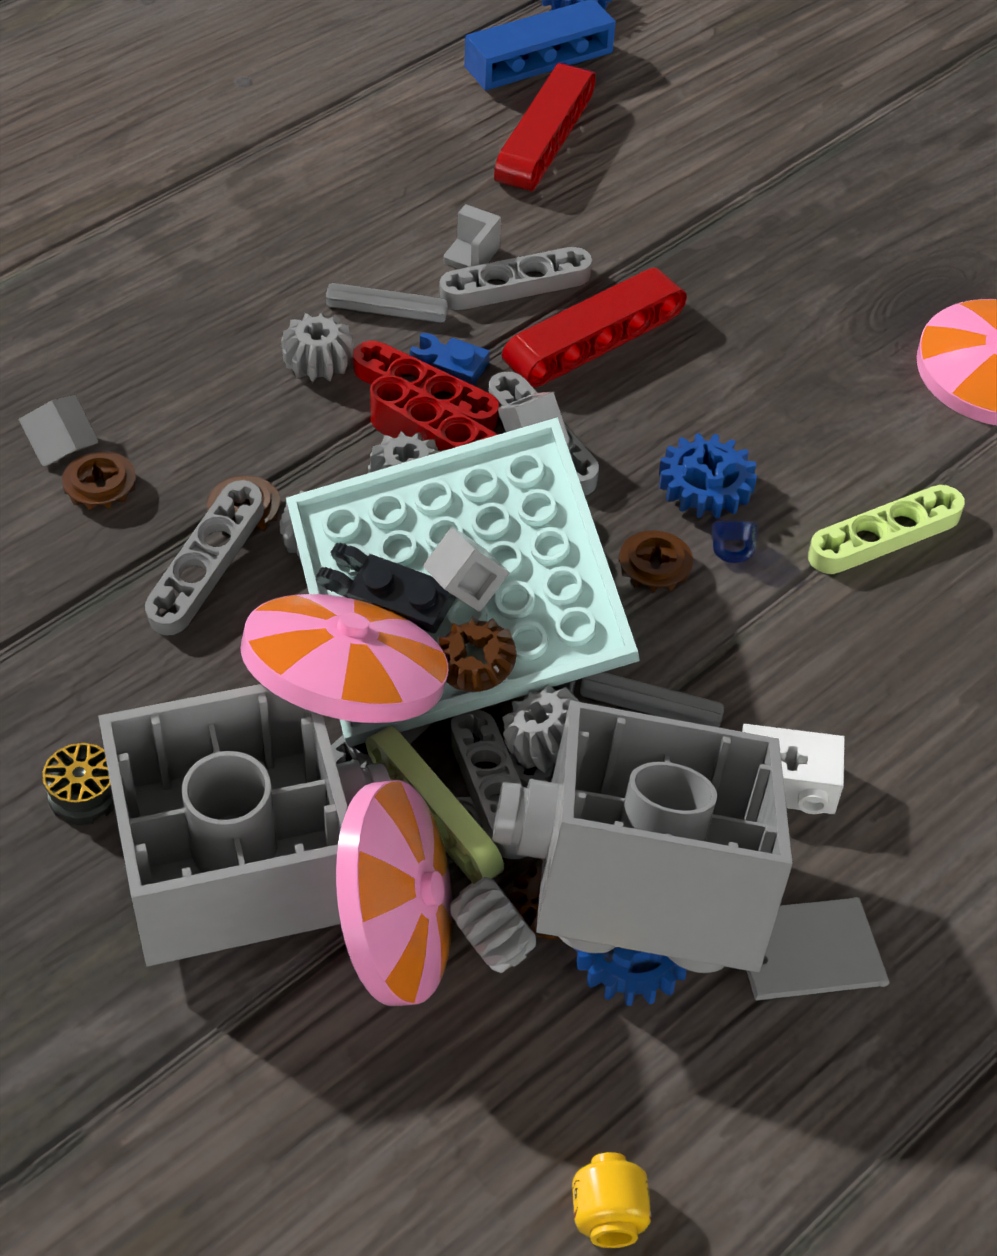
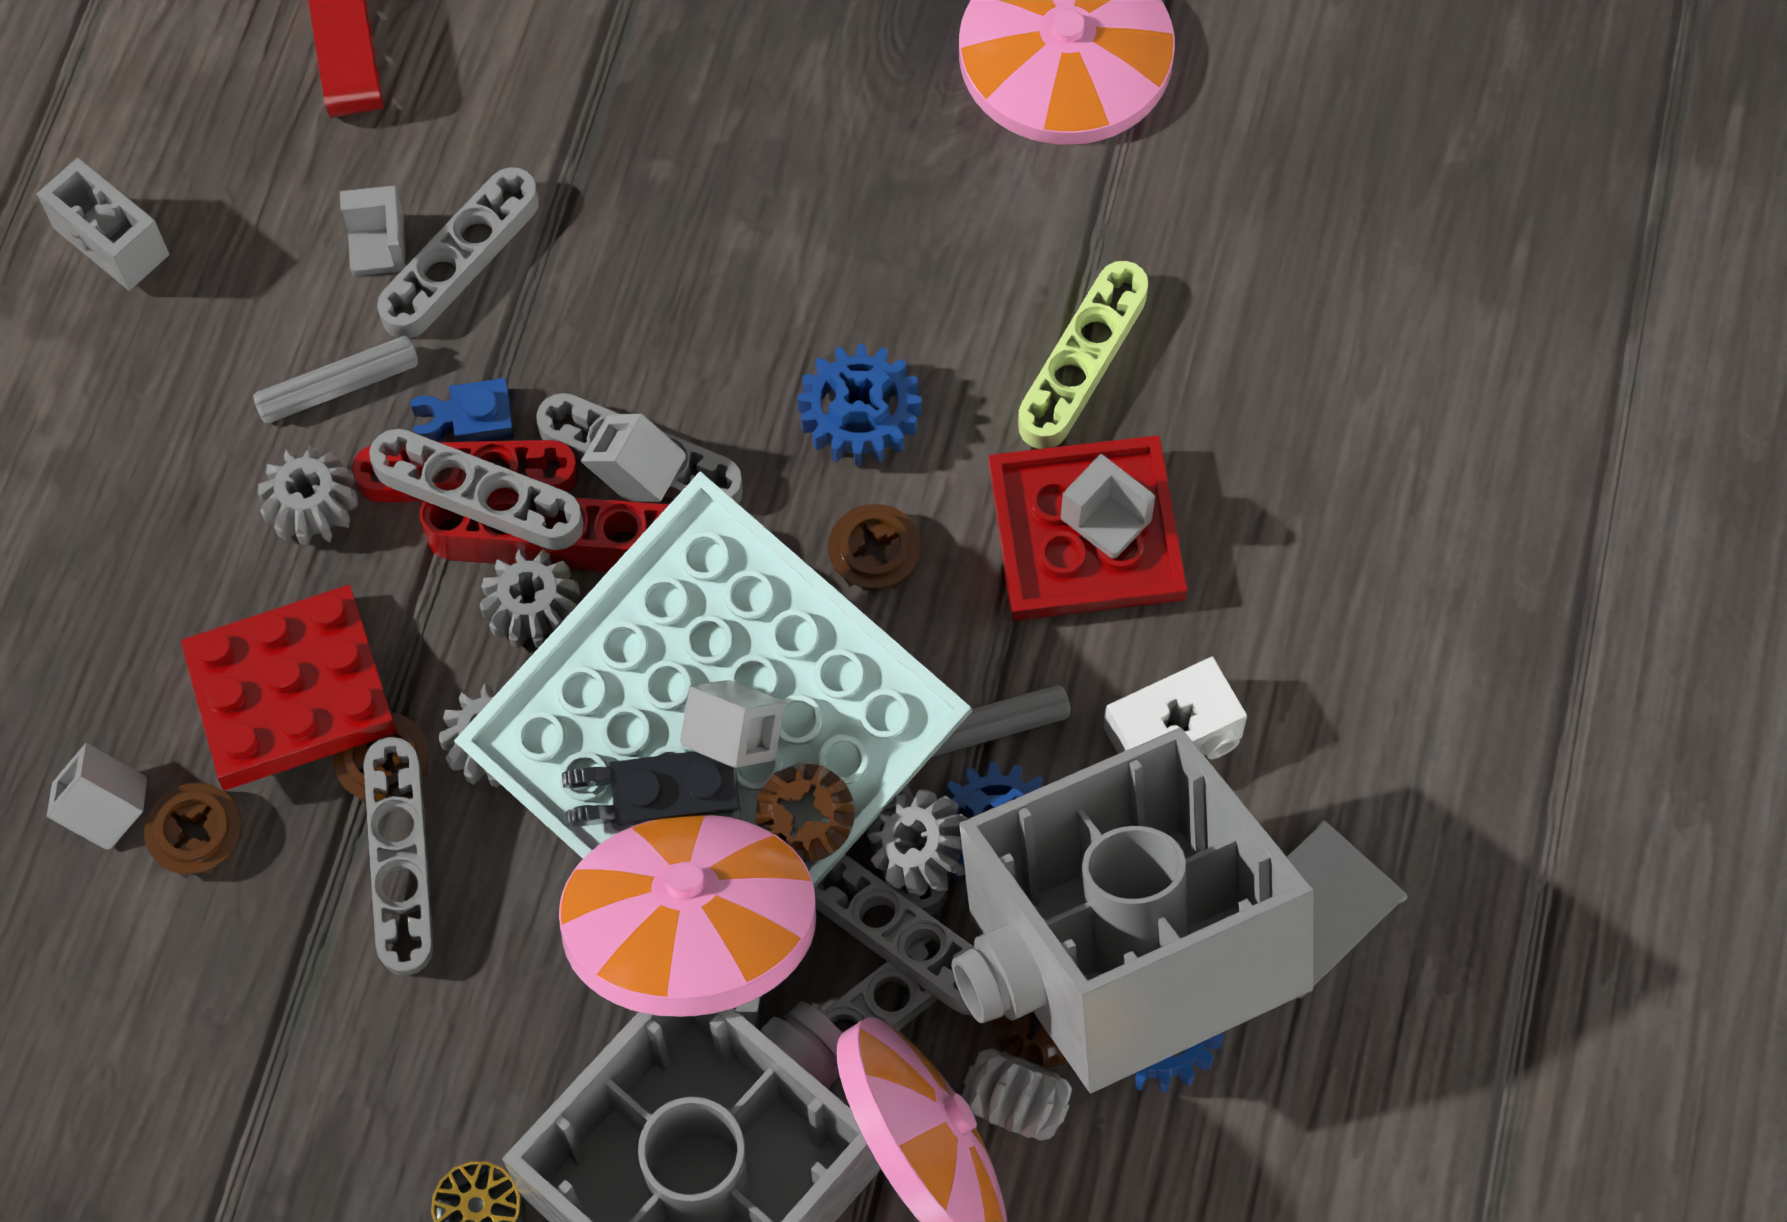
camera: 30 degrees left, 15 degrees up
(218, 434) = (287, 687): none -> red plate
(315, 158) = (103, 224): none -> light grey brick
(409, 385) = (472, 495): none -> light grey beam
(460, 833) = (862, 997): yellowish green beam -> none
(594, 327) = (600, 273): red beam -> none
(734, 532) = (935, 463): clear blue tile -> none
(812, 625) = (1056, 568): none -> red plate
(833, 607) = (1107, 506): none -> light grey panel

